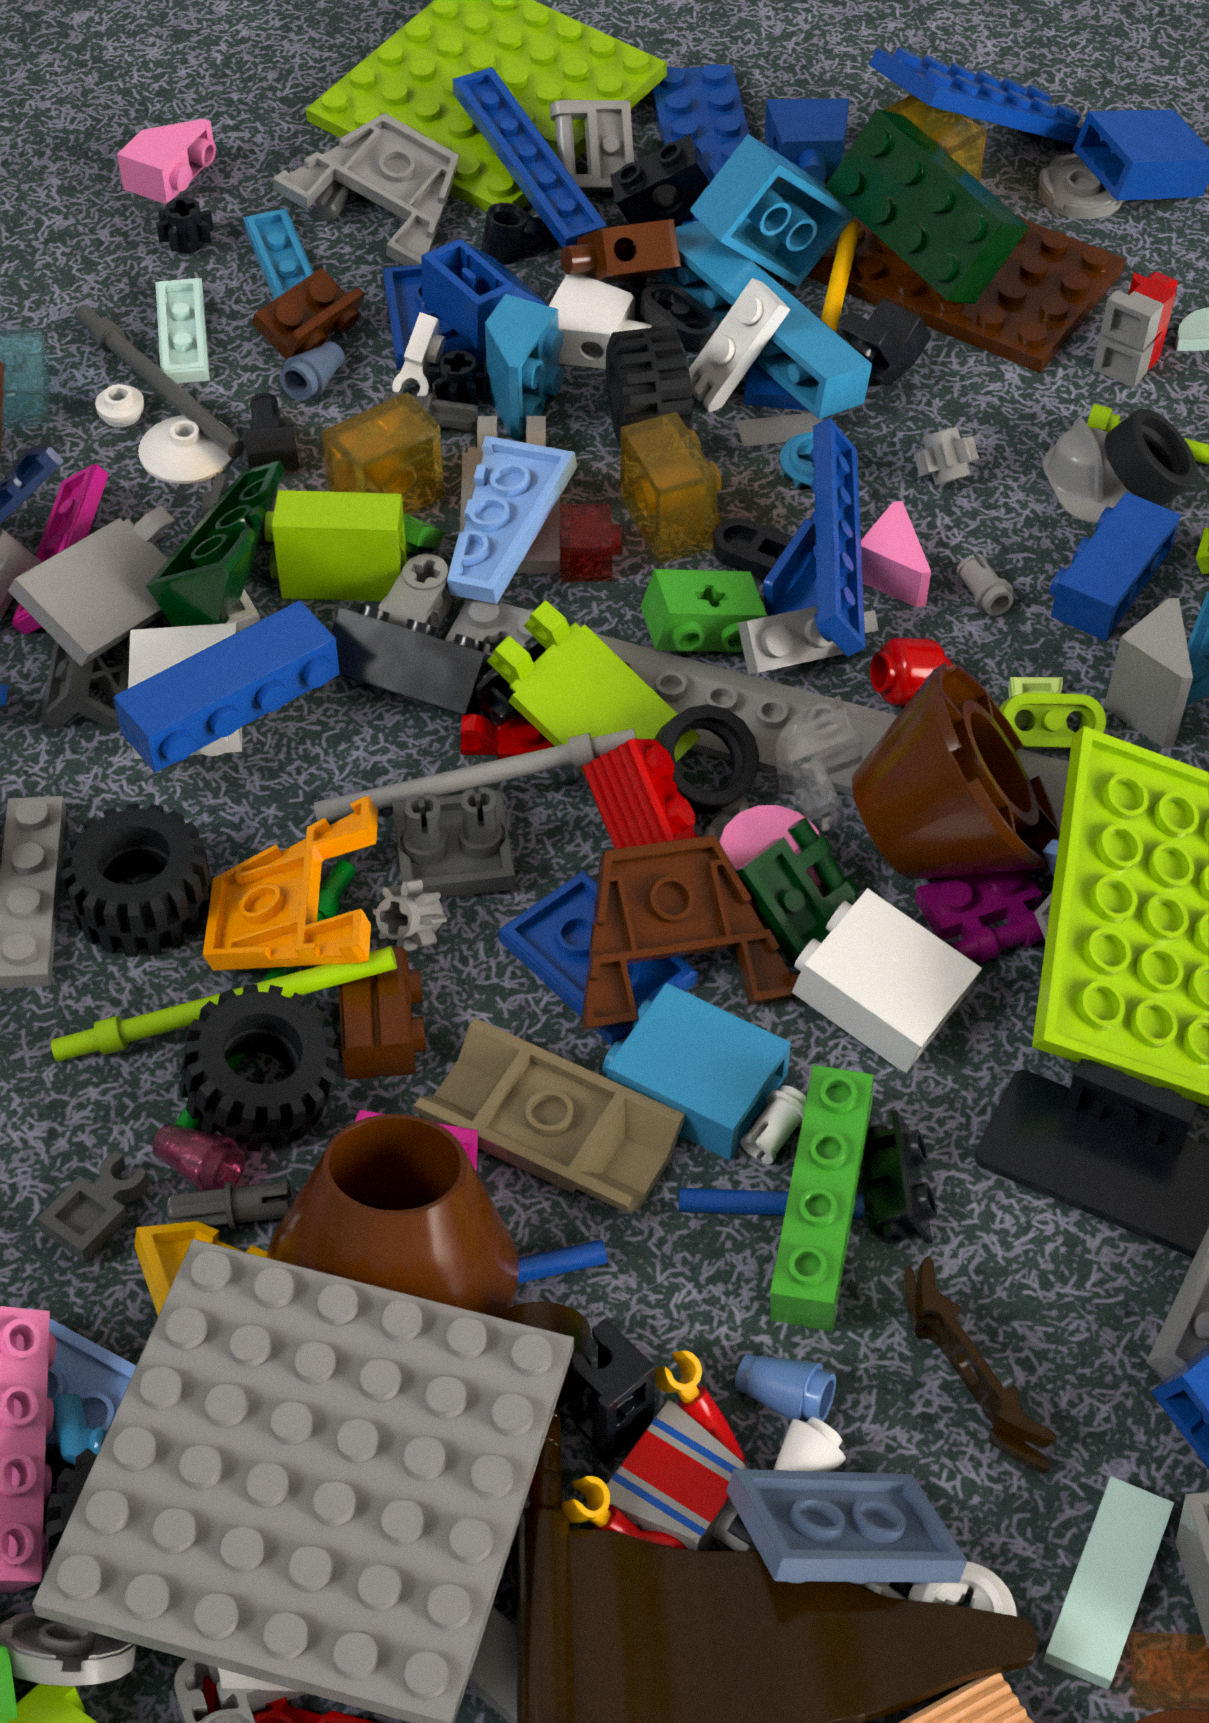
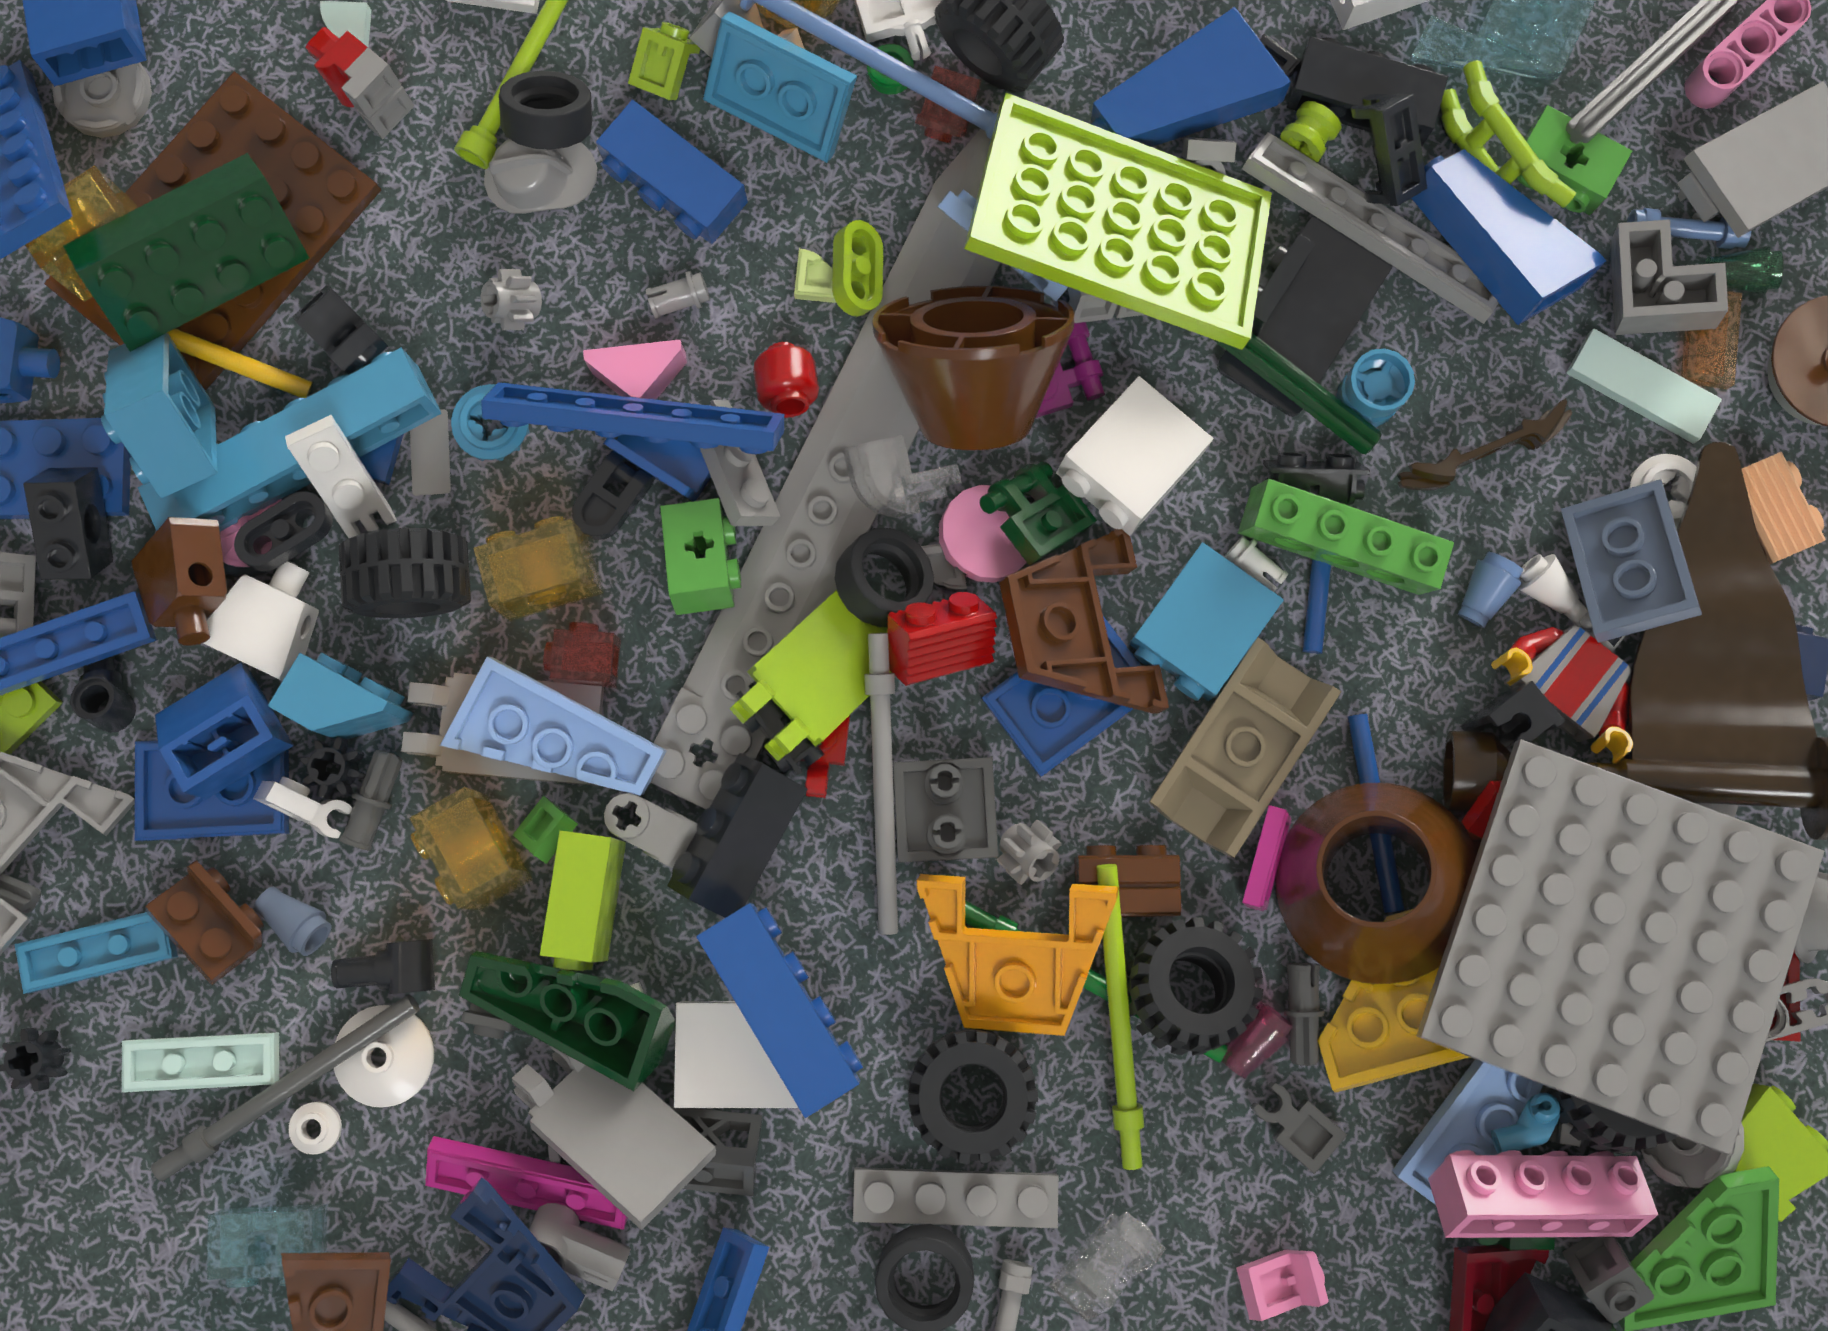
camera: 85 degrees left, 30 degrees up
(1006, 1148) = (1307, 394): none -> dark green axle
(1024, 1225) = (1377, 385): none -> dark azure wheel
(1153, 675) = (829, 164): light grey slope -> none

